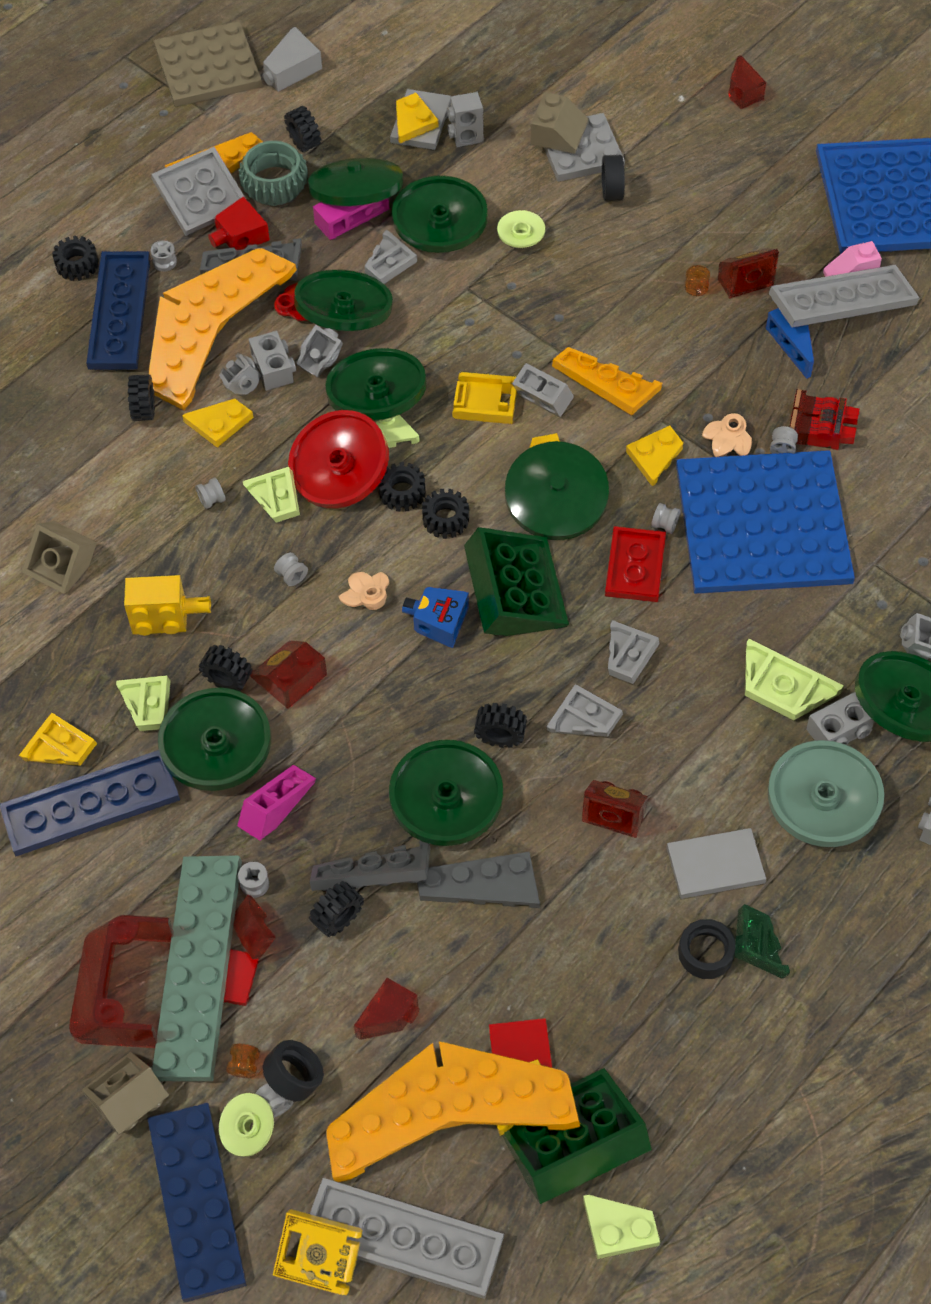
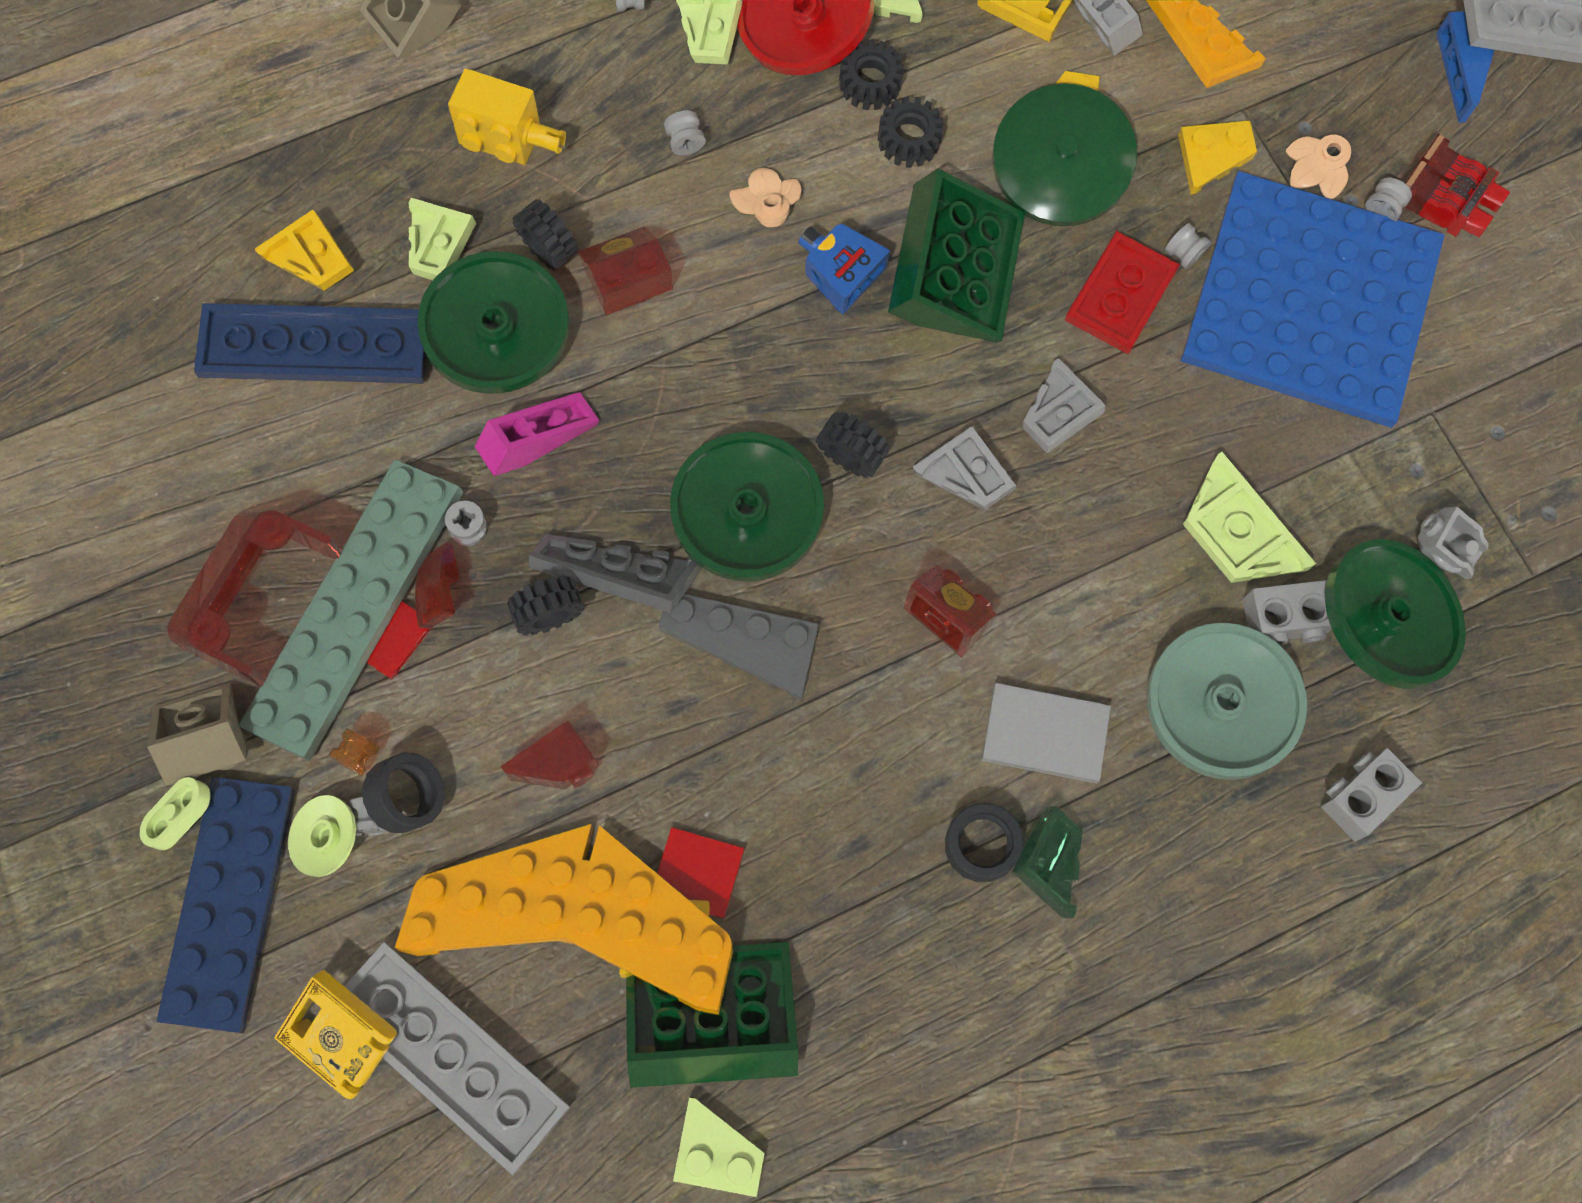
camera: 15 degrees right, 15 degrees up
(133, 1151) = (174, 813): none -> yellowish green plate

